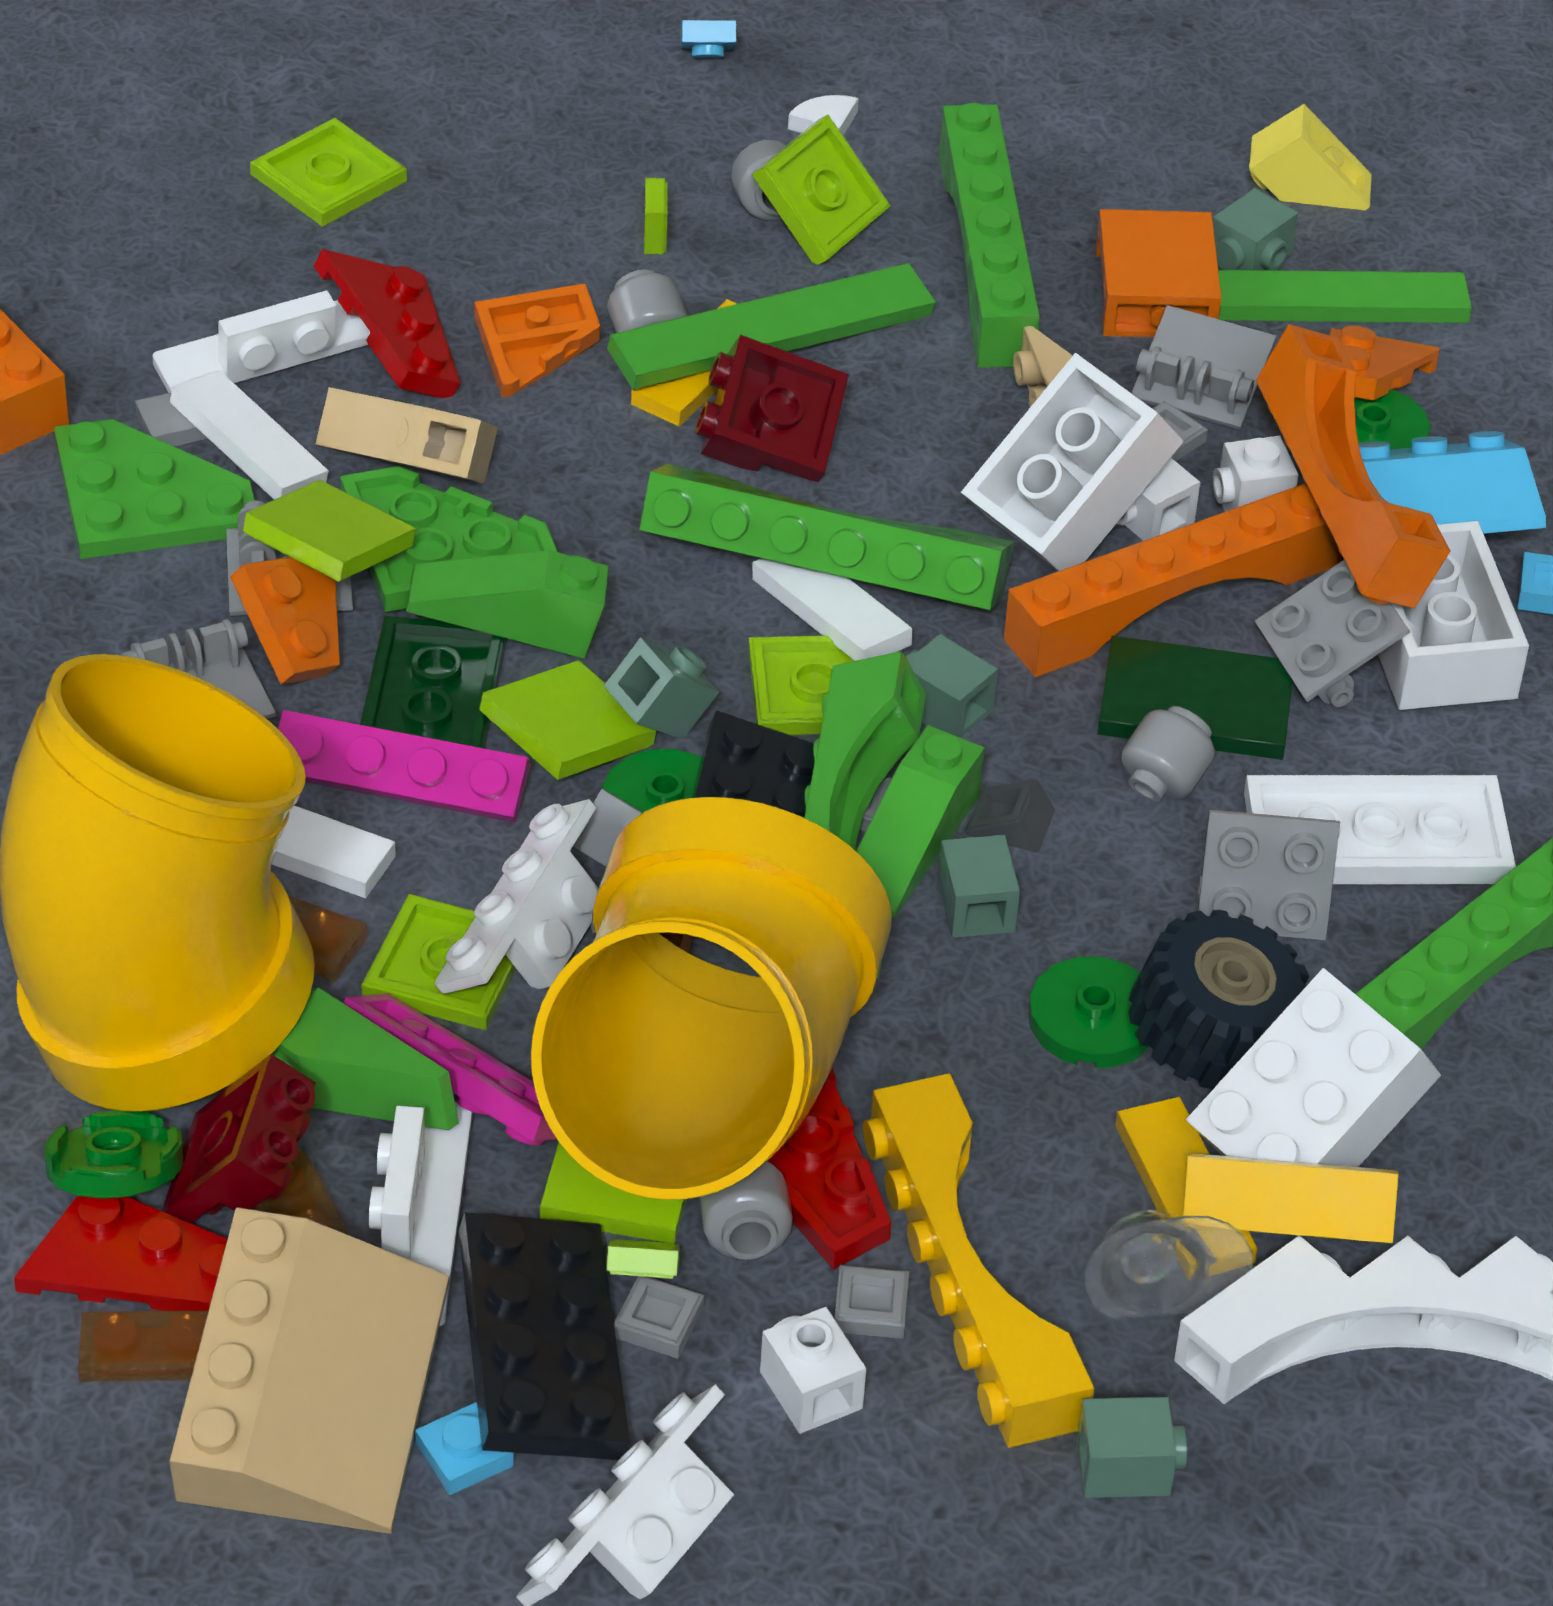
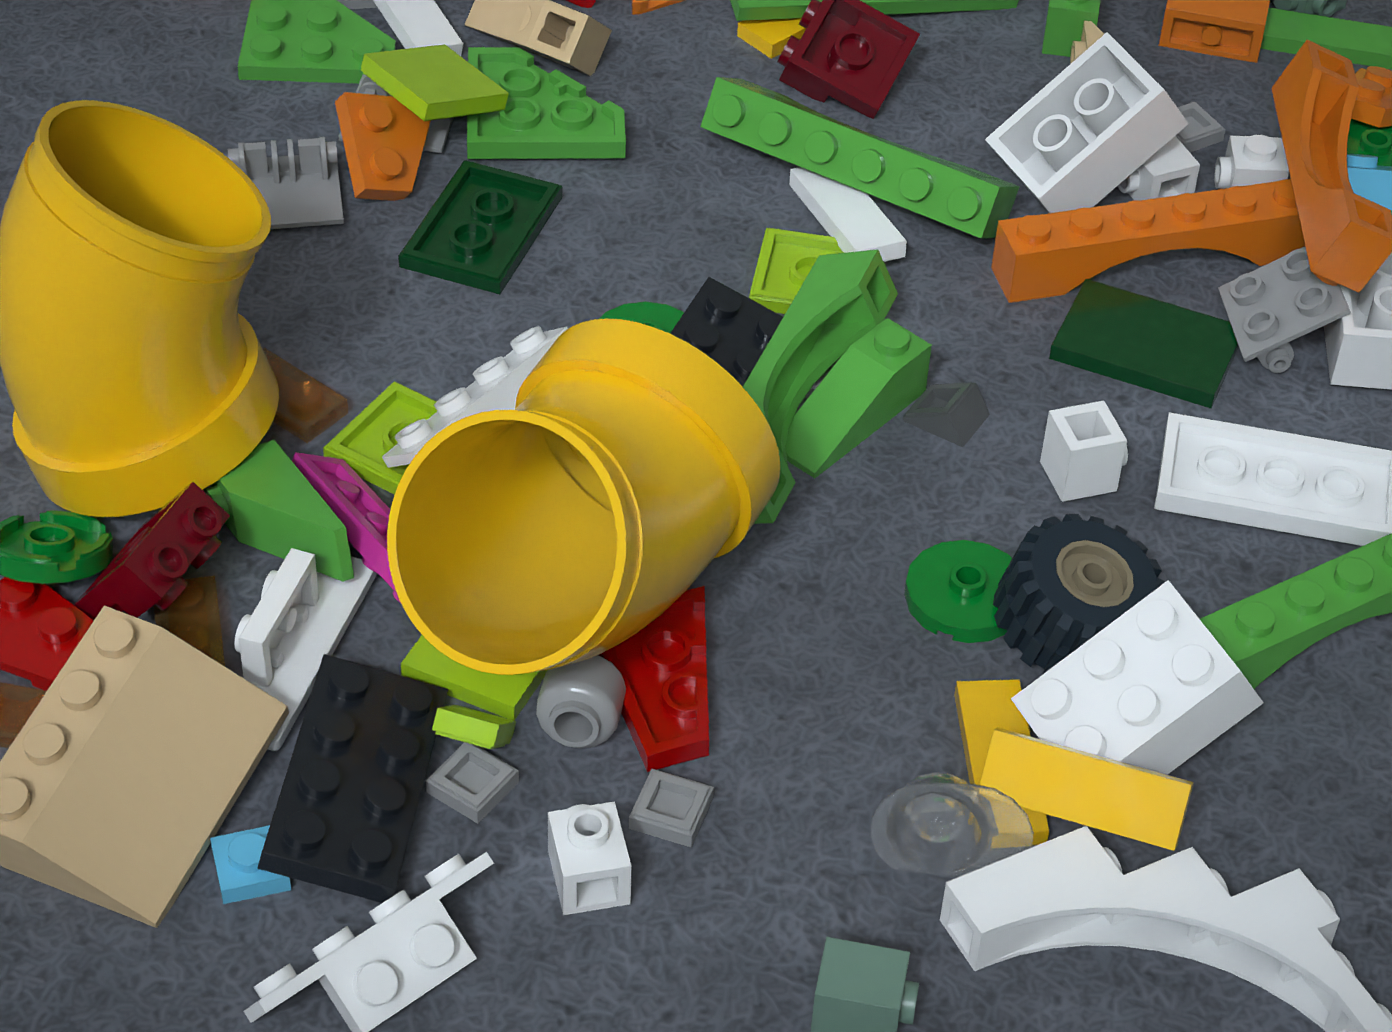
camera: 15 degrees right, 0 degrees up
(333, 852) = (319, 322): white tile -> none
(408, 766) = (428, 278): dark pink plate -> none
(518, 596) = (577, 160): bright green slope -> none
(565, 720) = (584, 266): lime tile -> none
(662, 687) = (670, 251): sand green brick -> none
(956, 685) = (929, 294): sand green brick -> none
(978, 886) = (893, 463): sand green brick -> none
(1023, 1363) = (787, 885): yellow arch -> none
(1168, 754) = (1105, 374): light grey head -> none
(1169, 835) = (1083, 451): none -> white brick
(1203, 366) = (1231, 79): light grey hinge -> none
(1270, 870) = (1162, 495): light grey hinge -> none

